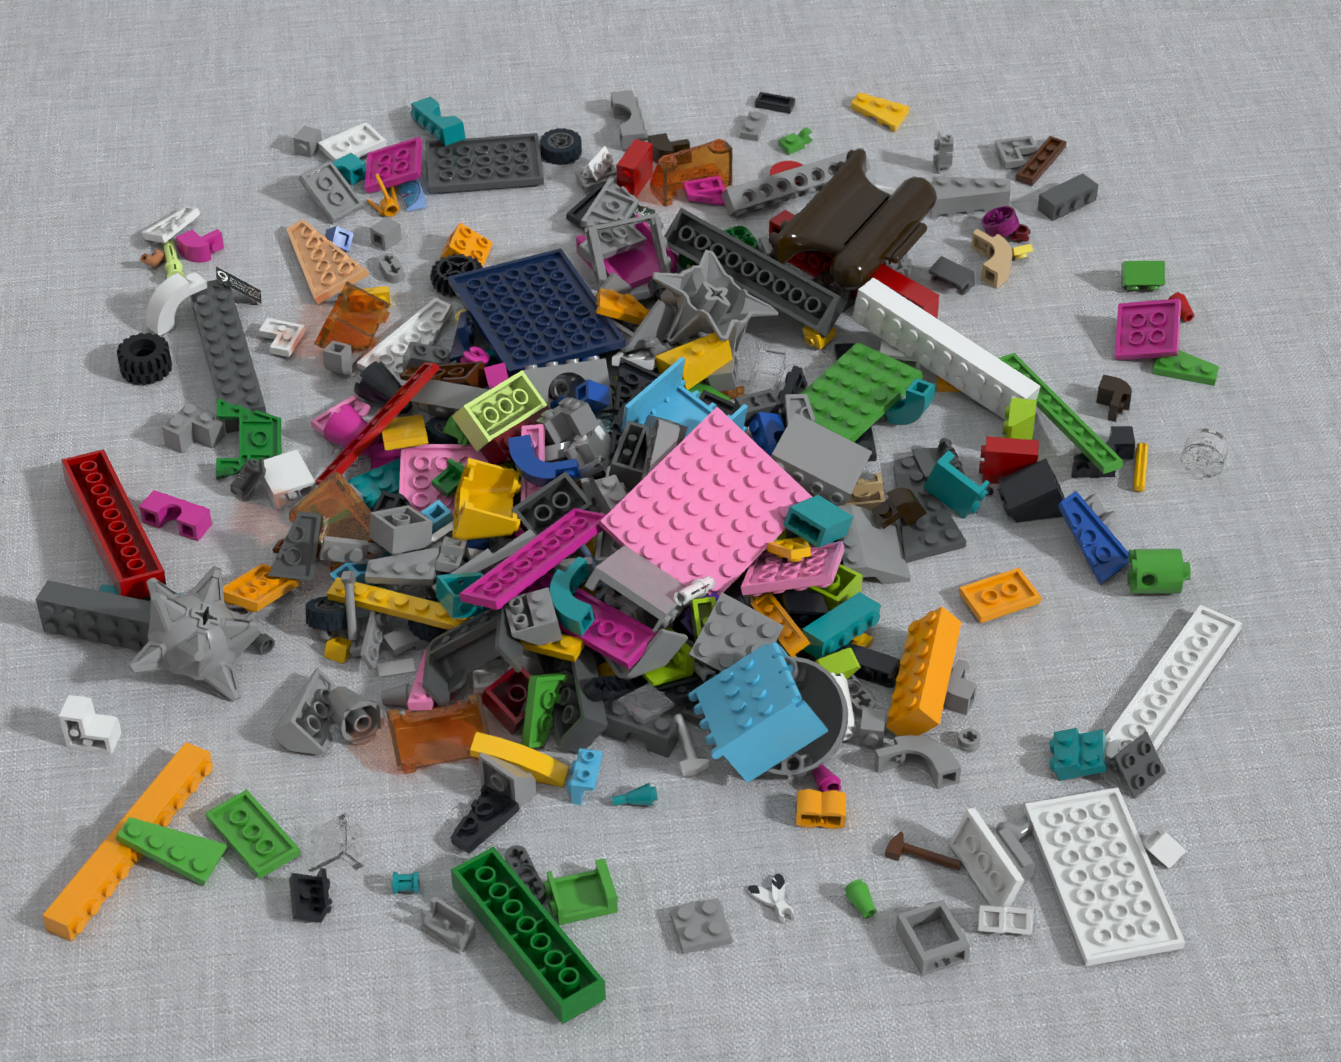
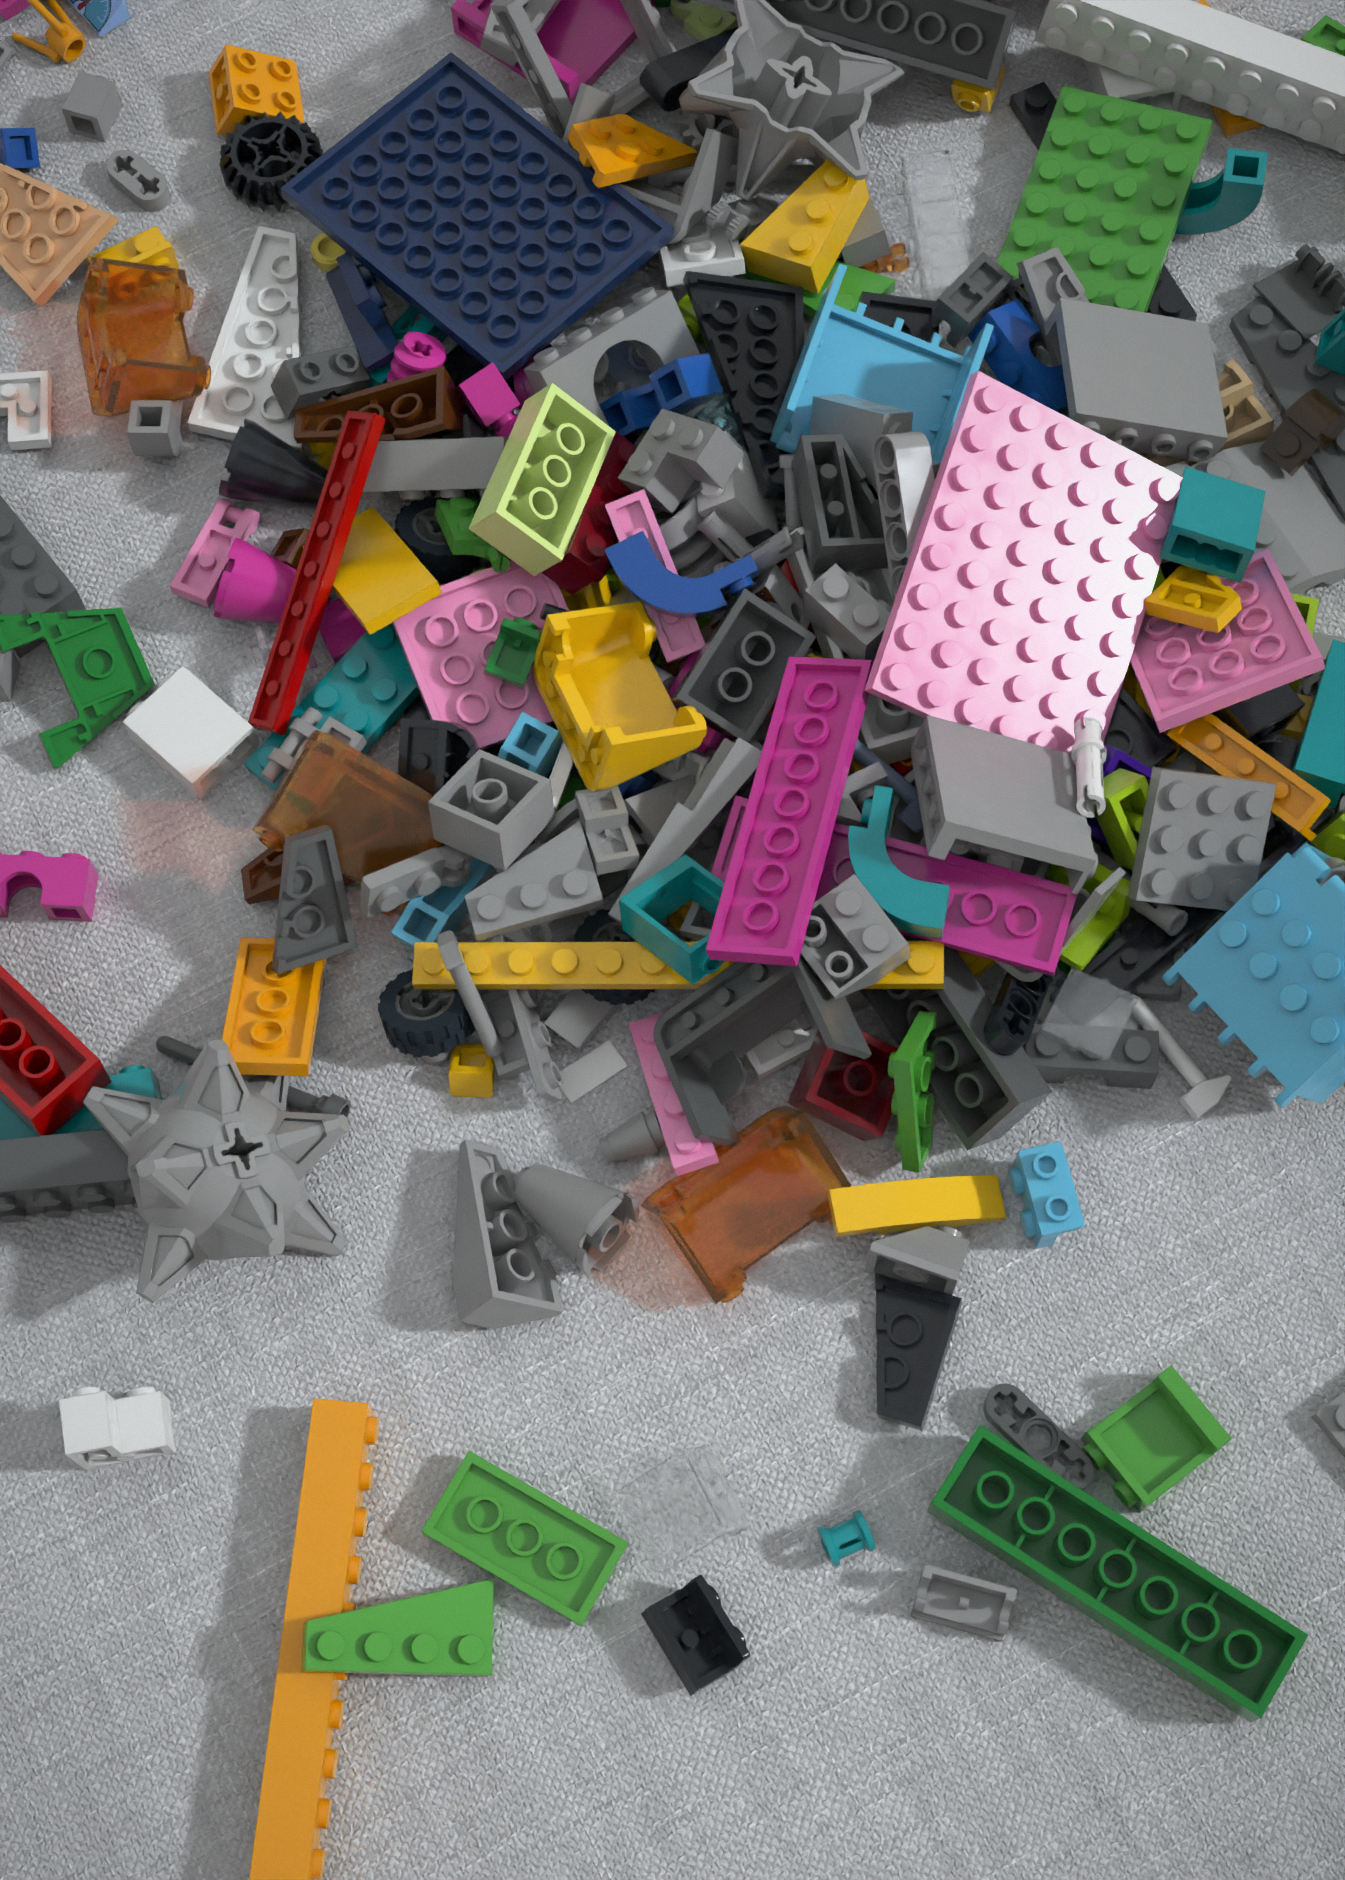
camera: 20 degrees left, 25 degrees up
(253, 472) = (128, 762): dark grey hinge -> none
(642, 795) = (1154, 1195): teal cone -> none
(793, 382) = (992, 210): black wing -> none

